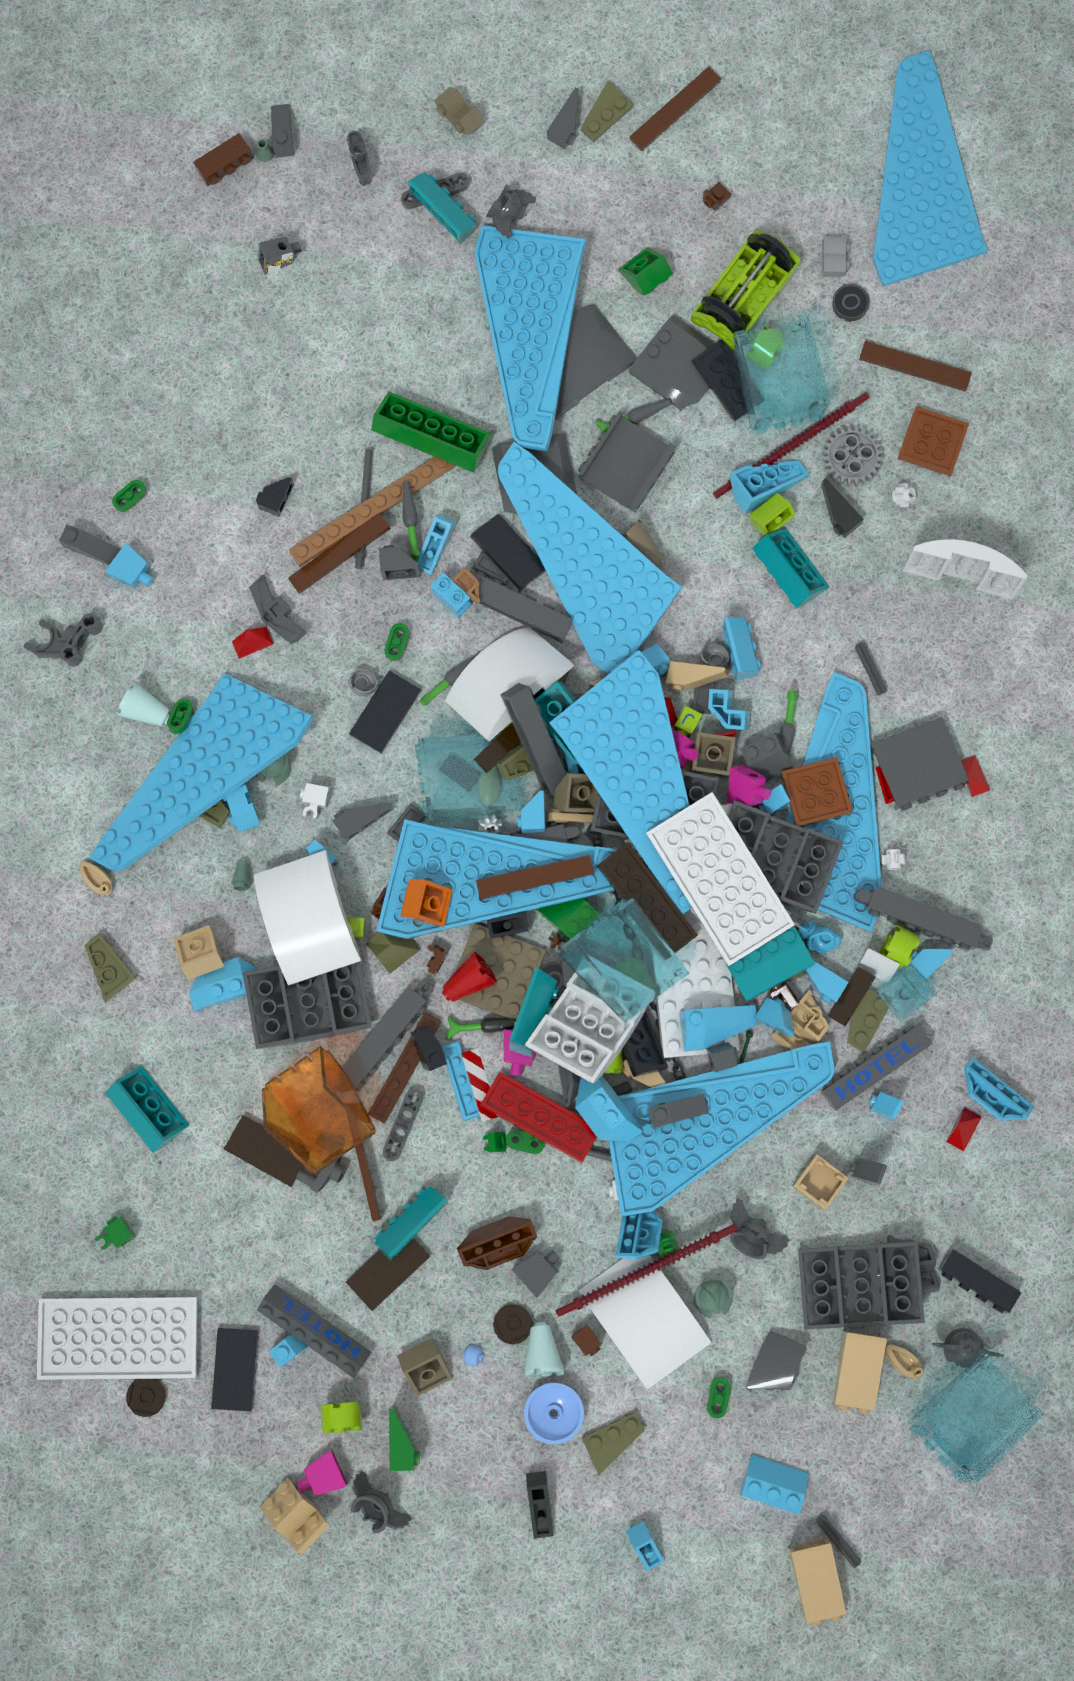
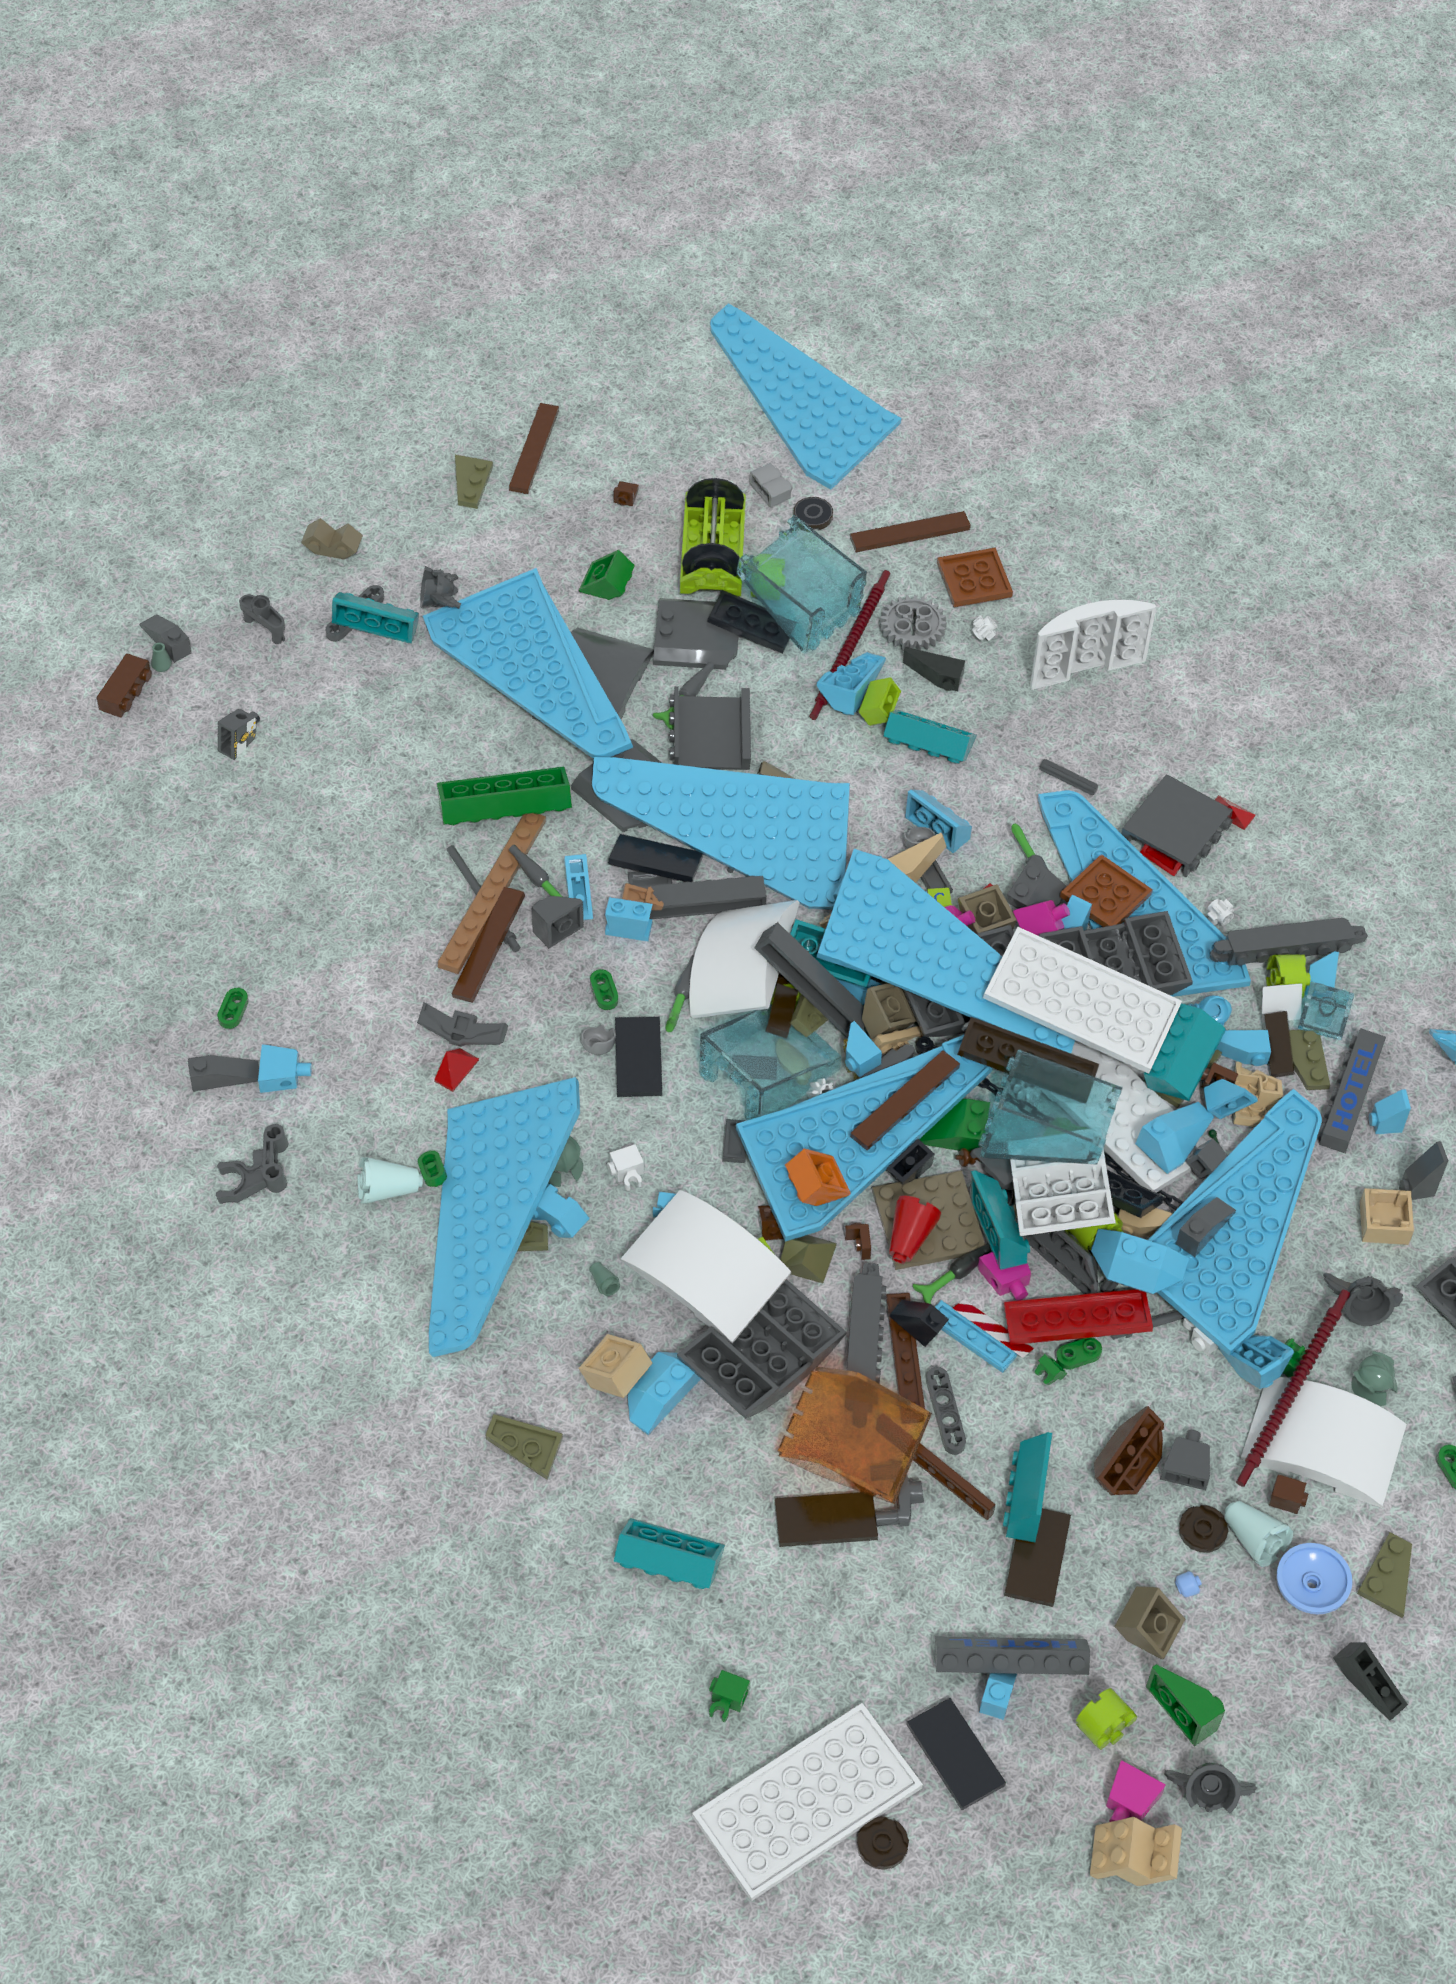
camera: 40 degrees left, 25 degrees down
(96, 878) = (450, 1368): tan arm -> none
(274, 496) = (385, 931): black slope -> none
(357, 819) = (685, 1159): dark grey slope -> none
(564, 125) = (442, 503): dark grey slope -> none
(721, 705) = (968, 878): medium azure brick -> none

